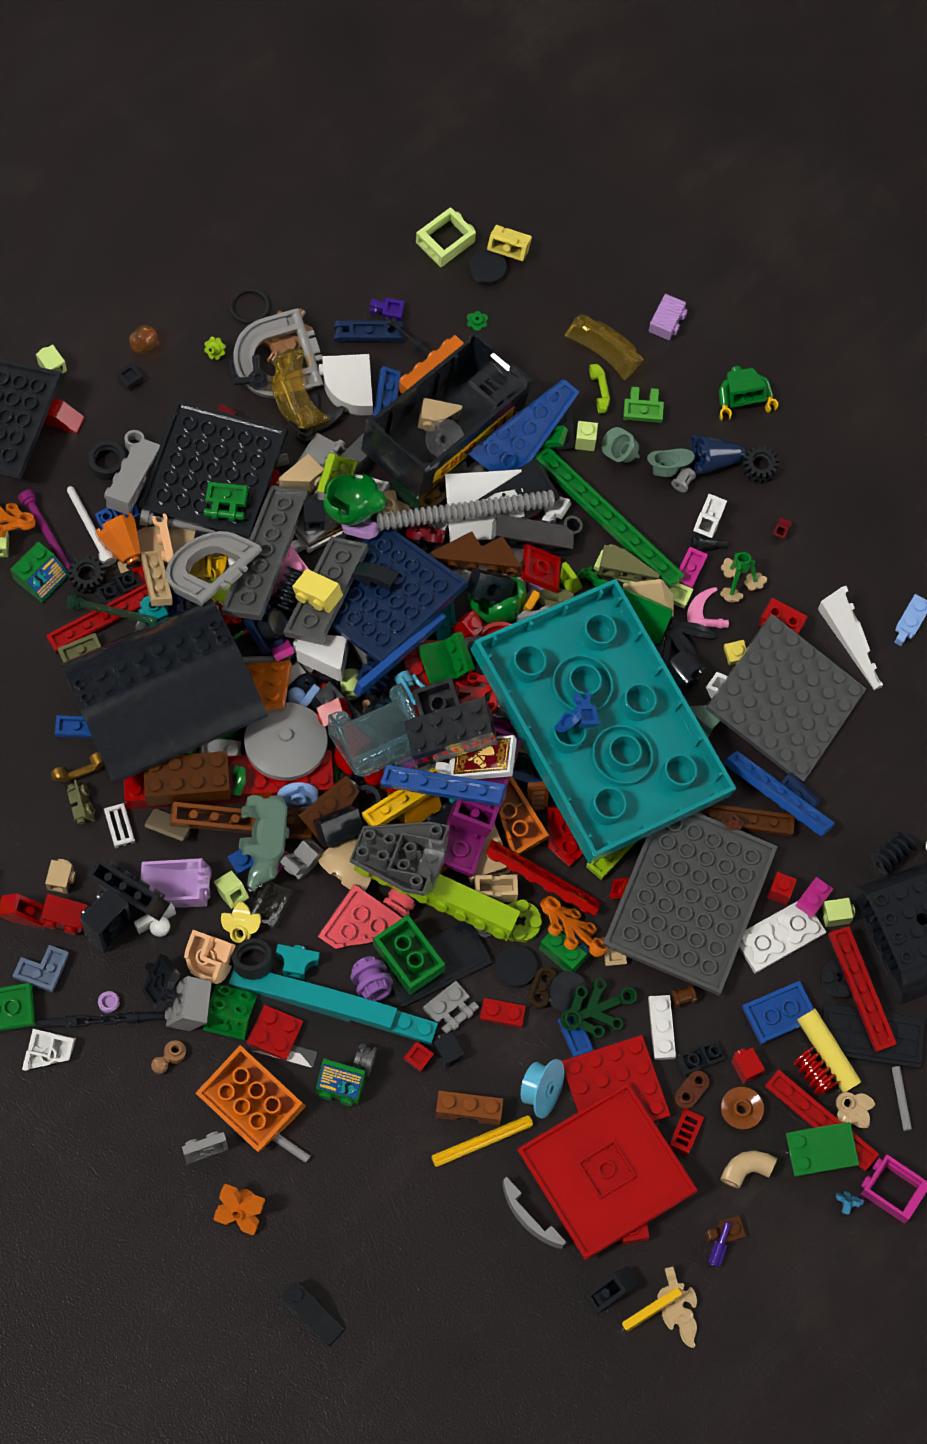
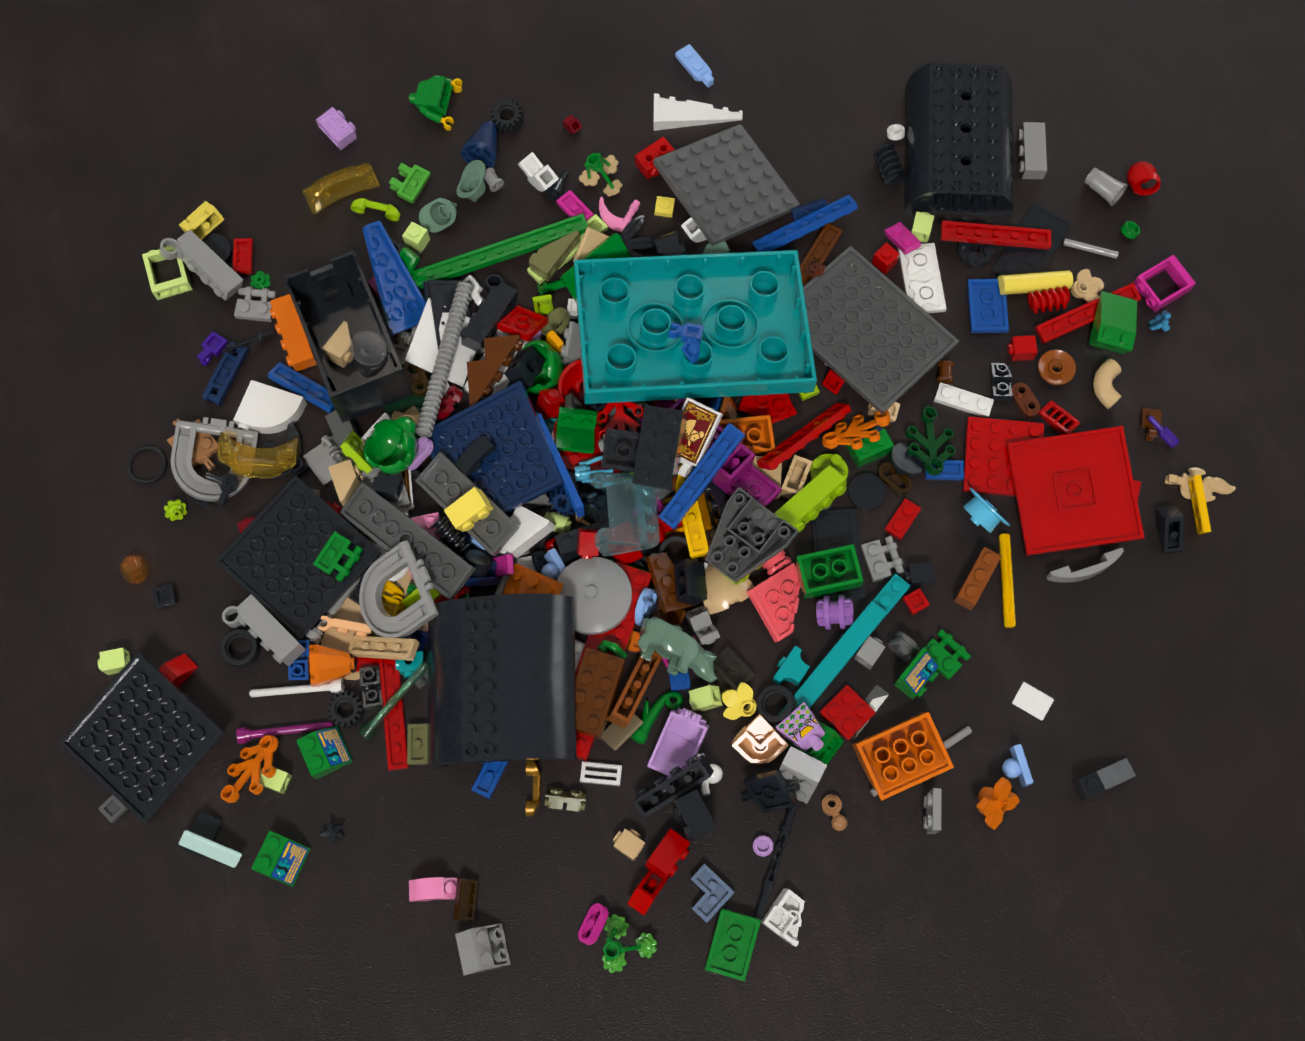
camera: 60 degrees left, 5 degrees up
(195, 847) = (650, 715): none -> green plant
(236, 990) = (802, 729): none -> lavender torso
(287, 1218) = (1017, 766): none -> light blue tile
(345, 1030) = (870, 652): none -> light grey brick
(365, 1213) = (1032, 701): none -> white sticker
(370, 1103) = (947, 663): none -> green plate
(444, 327) = (252, 309): none -> light grey plate
(466, 263) = (204, 263): none -> light grey hinge
(493, 294) = (243, 255): none -> red plate

